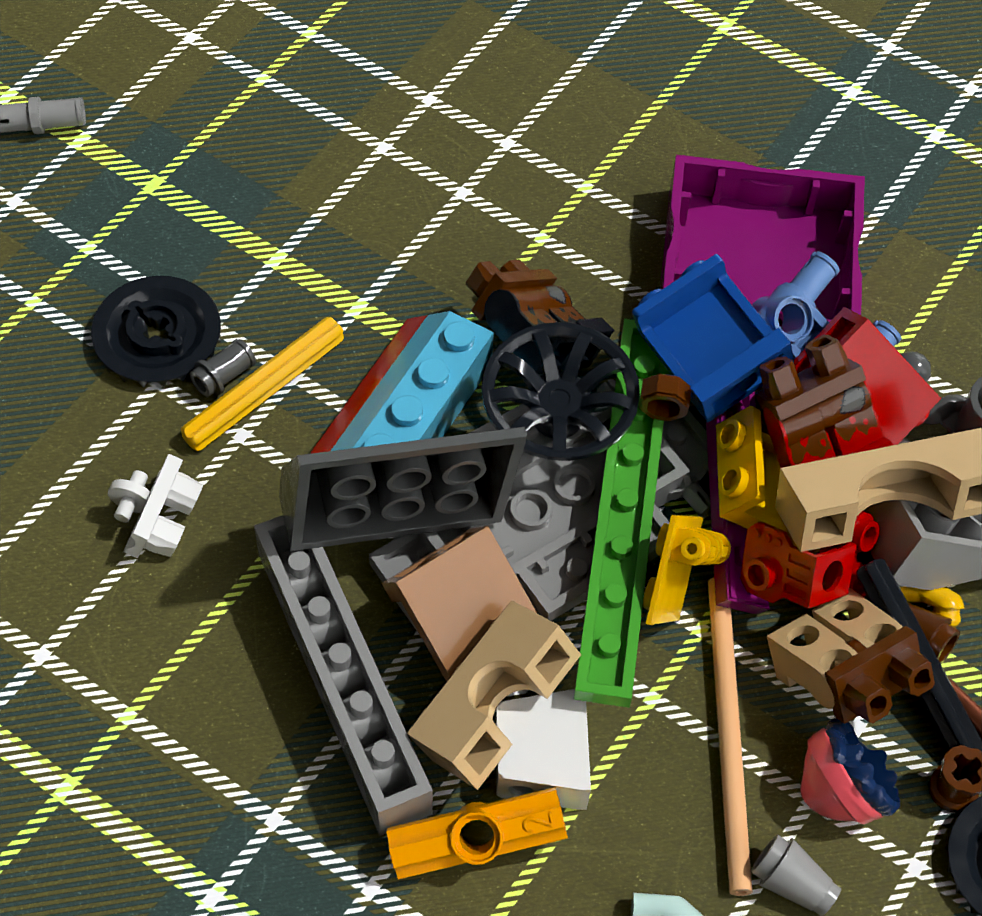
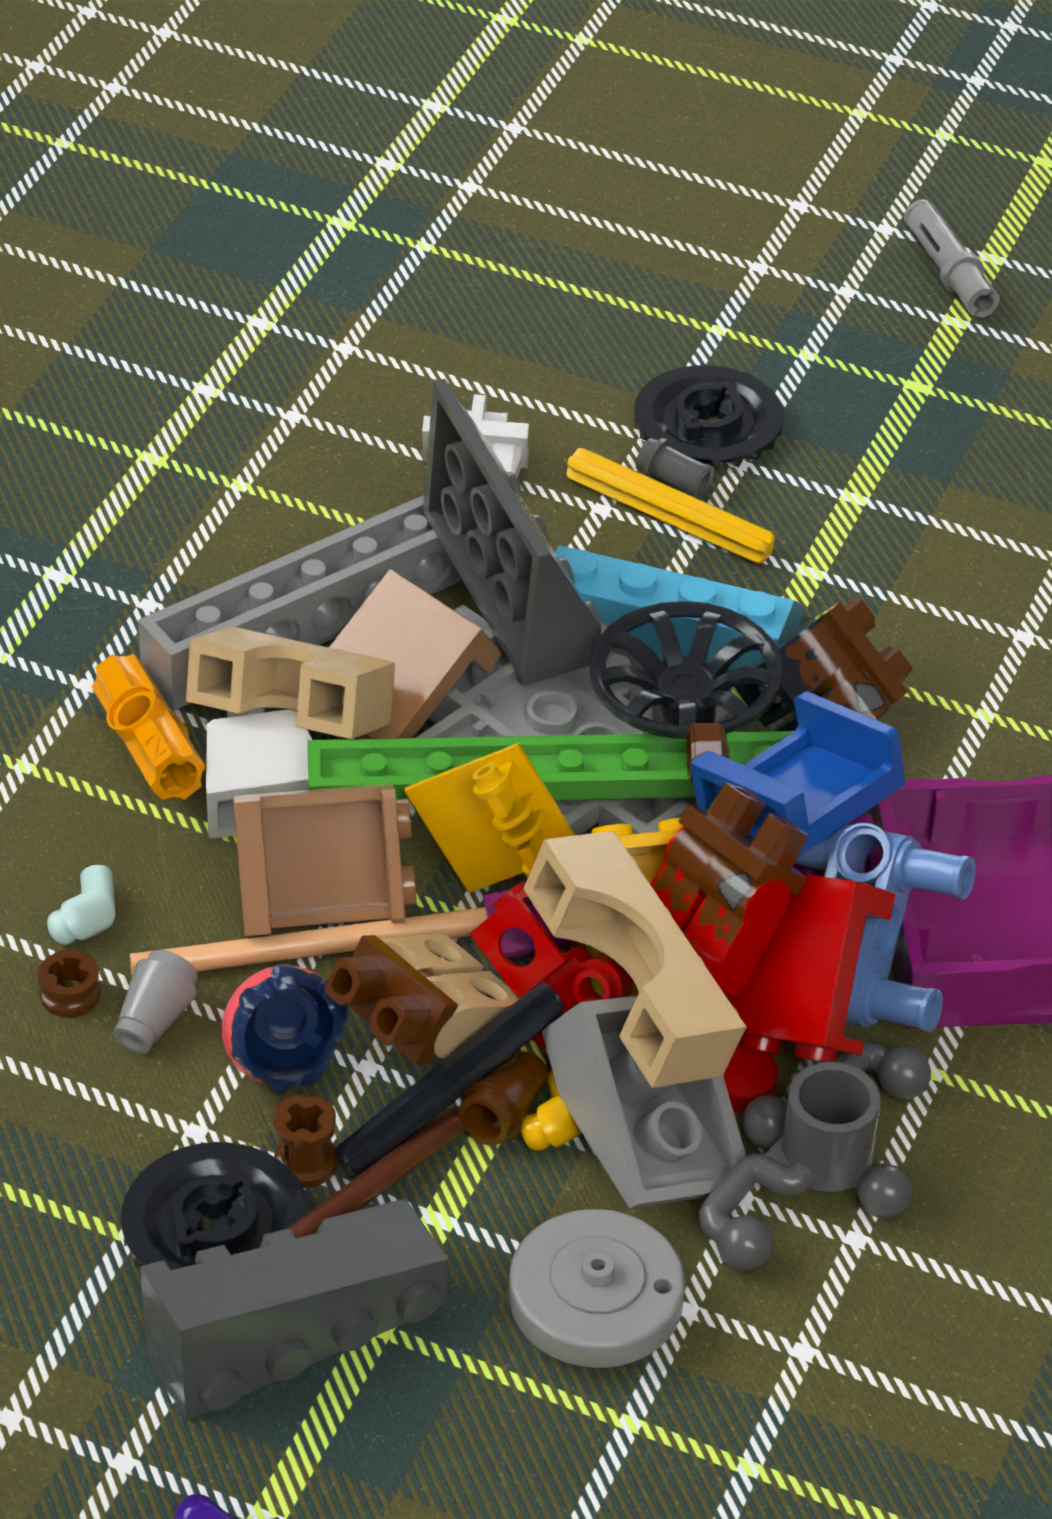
camera: 80 degrees right, 15 degrees down
(678, 709) = (322, 857): none -> medium nougat panel

